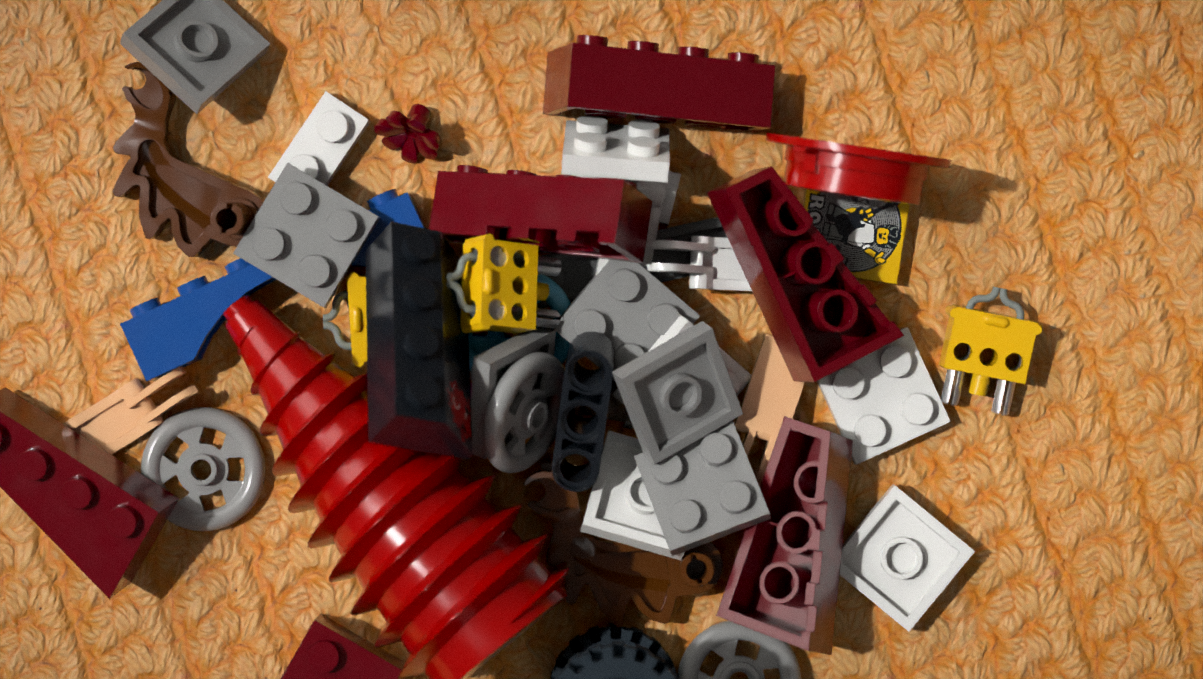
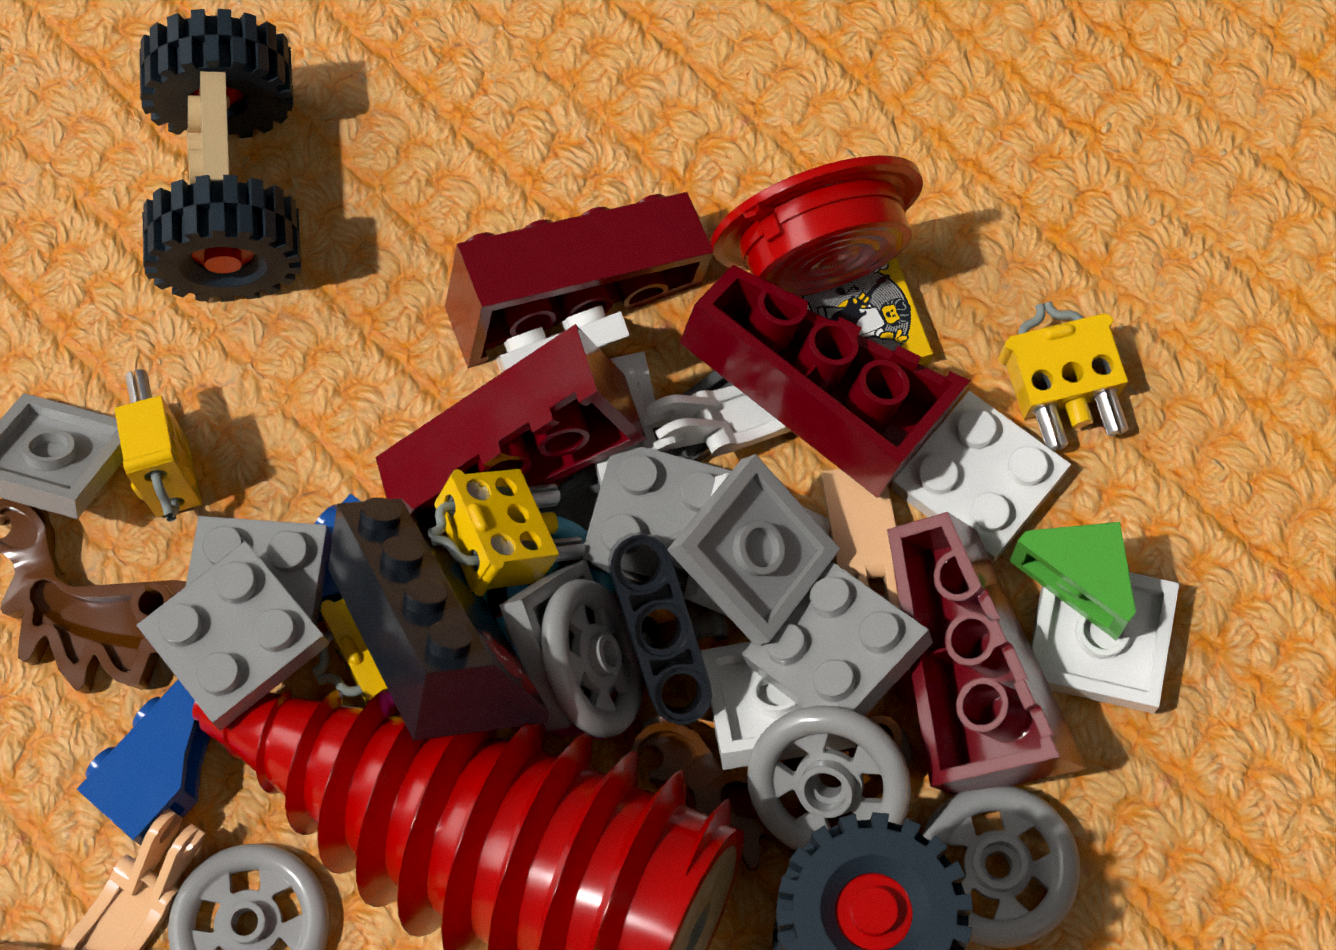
camera: 20 degrees left, 20 degrees down
(275, 277) = (232, 635): none -> light grey plate
(277, 81) = (155, 451): none -> yellow piece
(323, 140) = (243, 483): white plate -> none
(409, 134) = (329, 445): dark red plant -> none
(646, 582) = (809, 730): none -> light grey plate
(909, 516) = (1083, 569): none -> bright green slope

